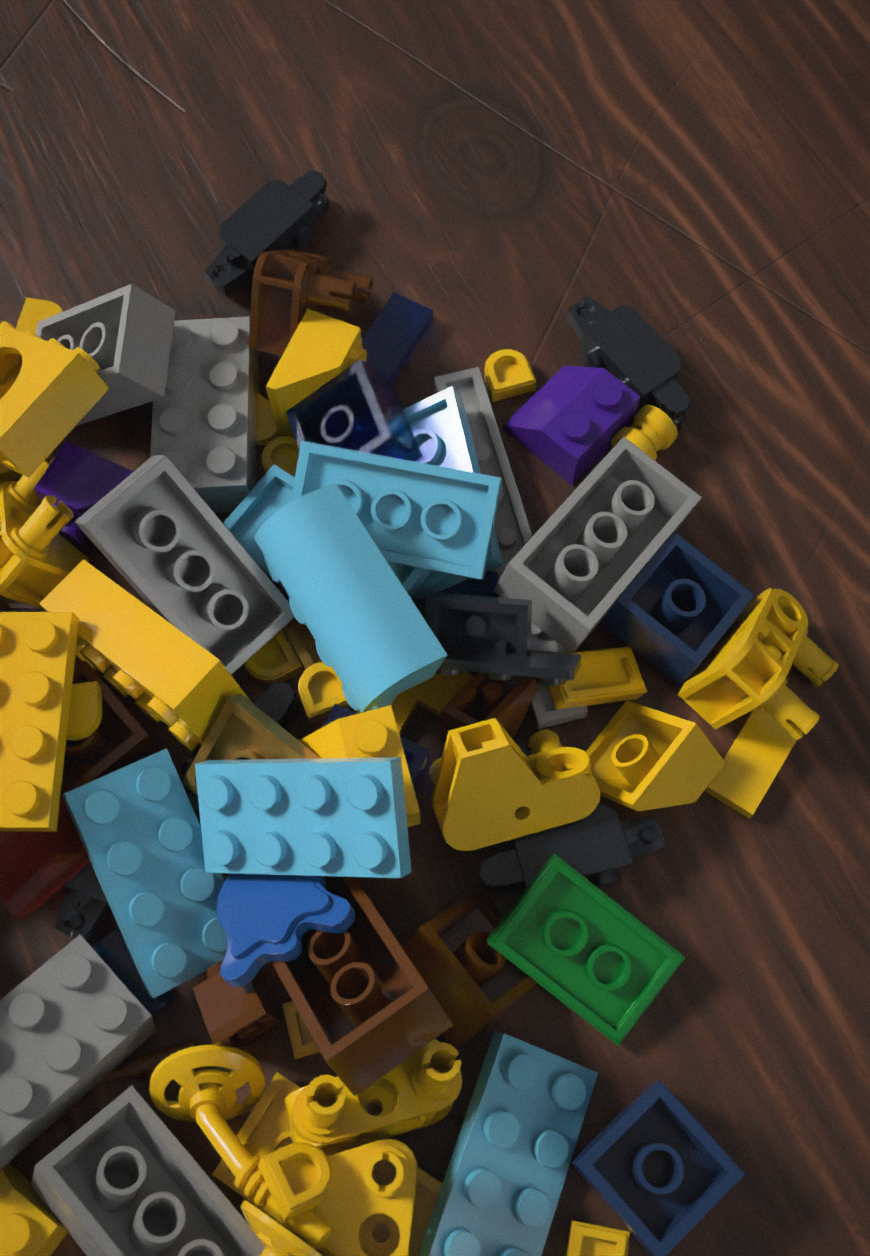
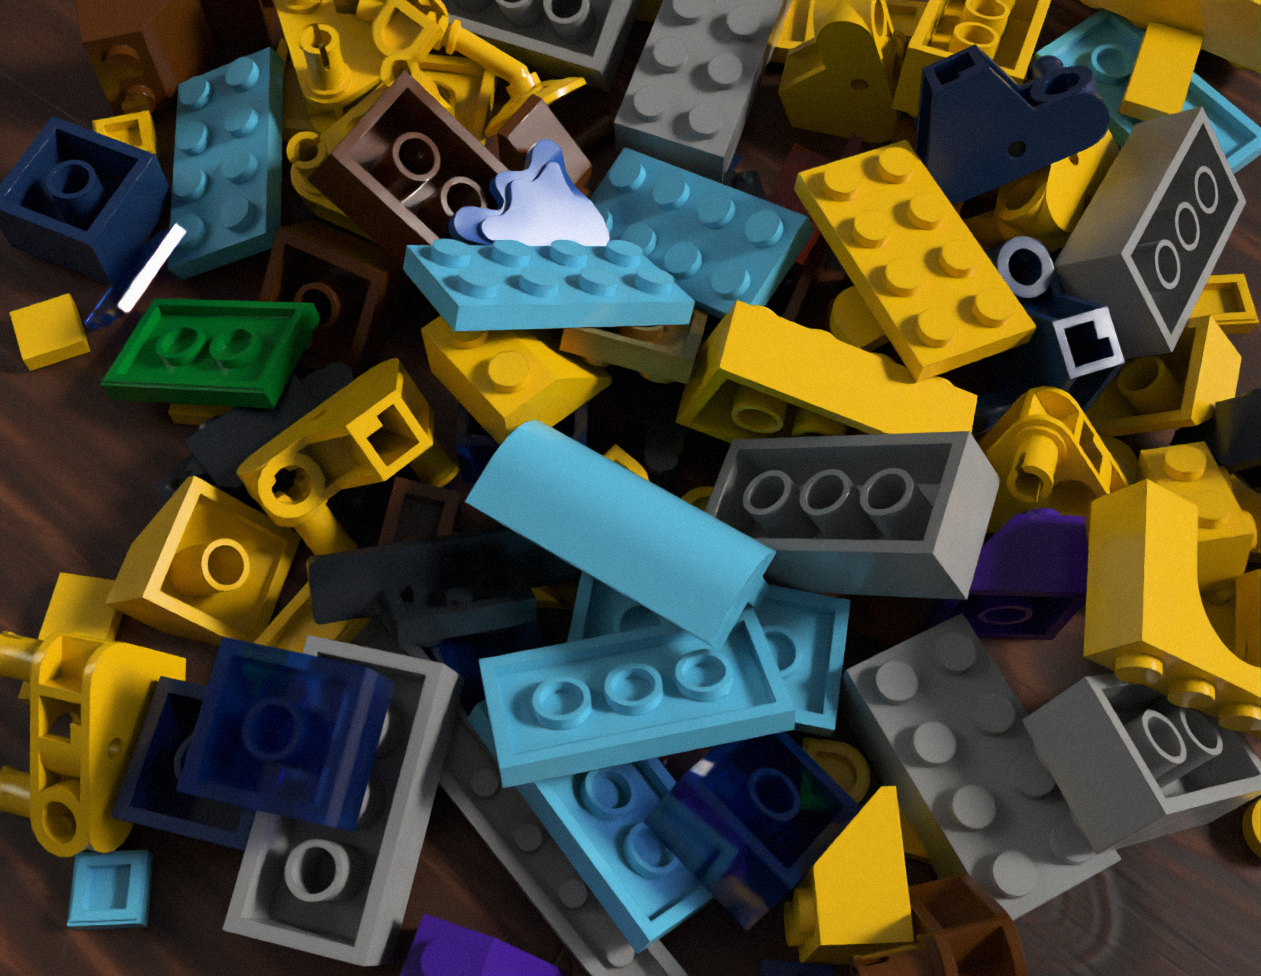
camera: 150 degrees right, 5 degrees down
(624, 546) = (287, 734): none -> clear blue brick
(629, 1058) = (135, 278): none -> clear blue piece
(716, 1055) = (49, 332): none -> yellow tile
(767, 573) = (111, 890): none -> medium azure tile

